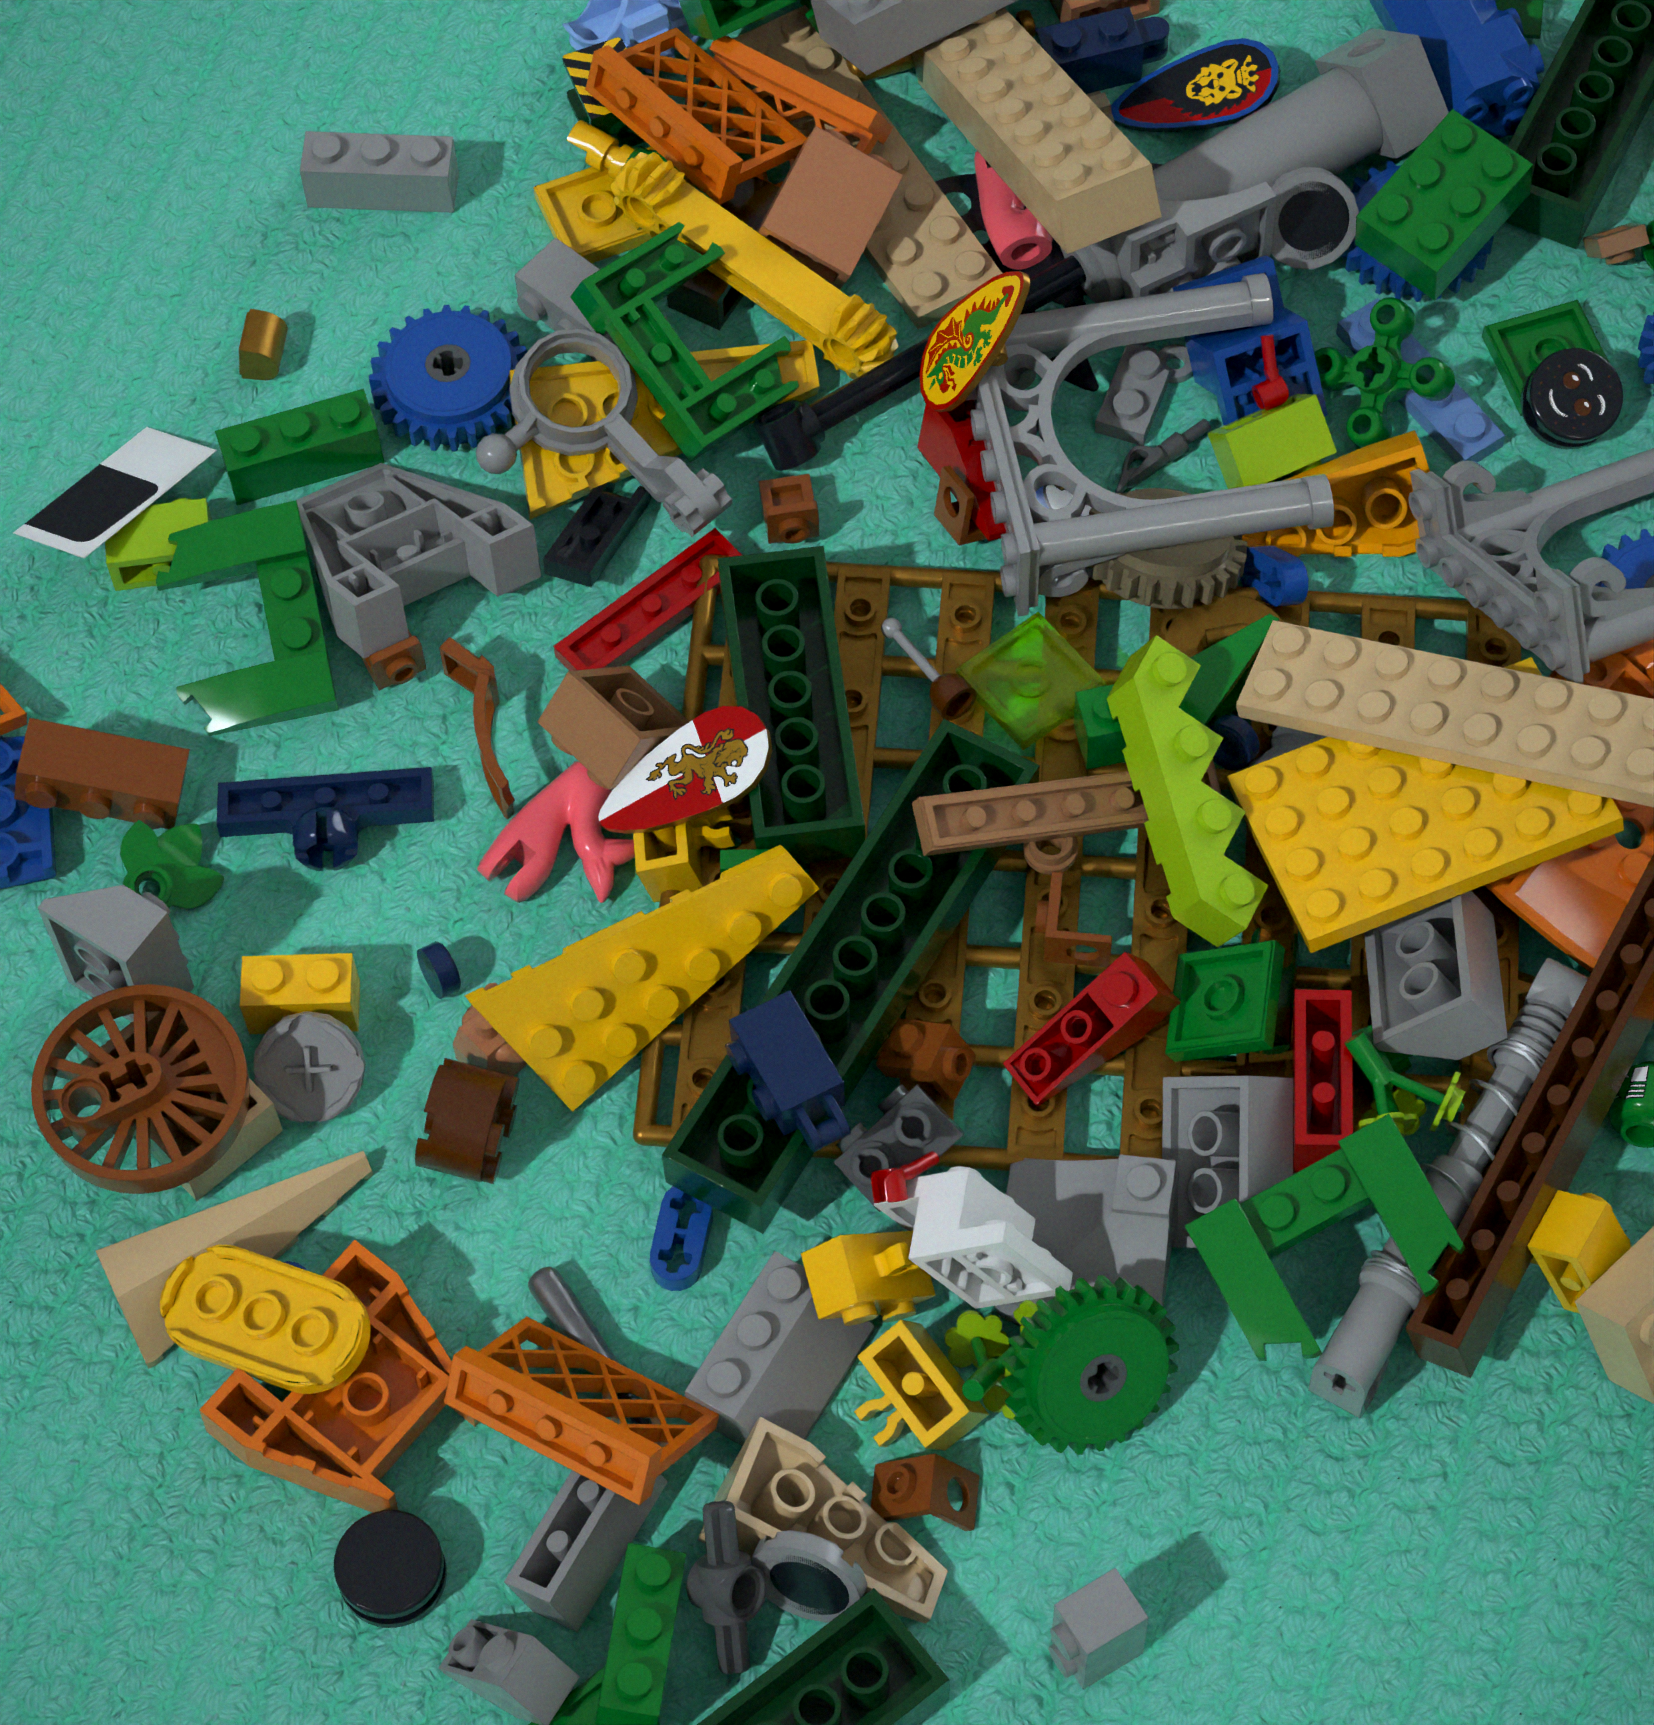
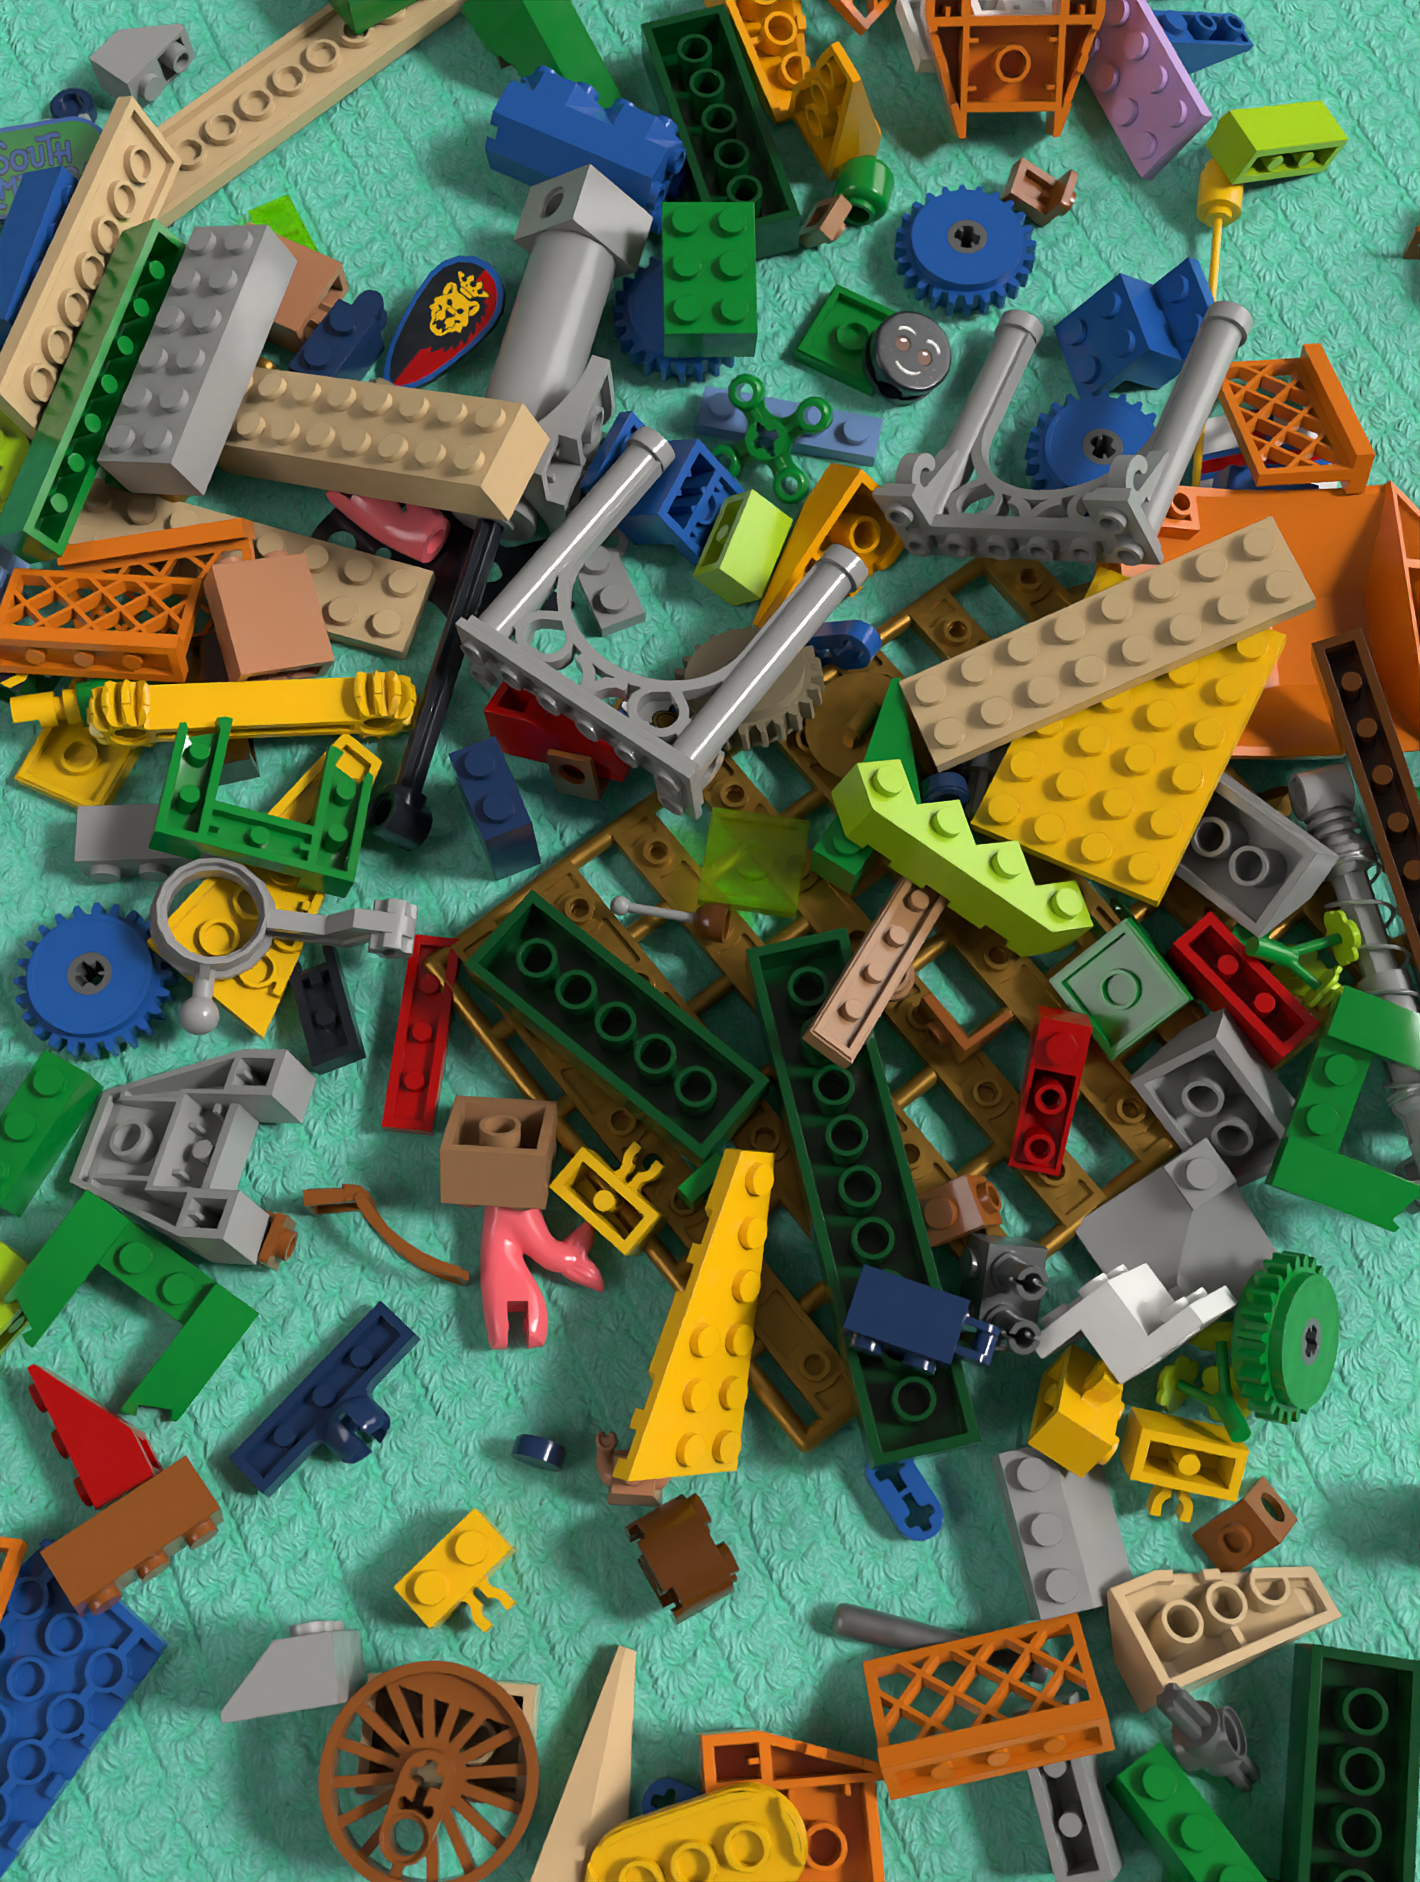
camera: 45 degrees left, 10 degrees up
(138, 686) = (103, 1446): none -> red slope
(170, 863) = (250, 1553): green plate -> none
(309, 1066) = (521, 1622): light grey tile -> none
(691, 773) = (601, 1146): shield -> none
(789, 509) = (450, 874): dark orange bracket -> none
(808, 1575) = (1252, 1672): tile -> none
(864, 480) = (495, 808): none -> dark blue brick
(891, 1183) = (1050, 1334): red hand -> none
(971, 340) = (494, 642): shield -> none
(1157, 457) = (665, 623): dark grey hand -> none
(1273, 390) = (714, 509): red hand -> none
(1312, 218) = (632, 356): tile -> none

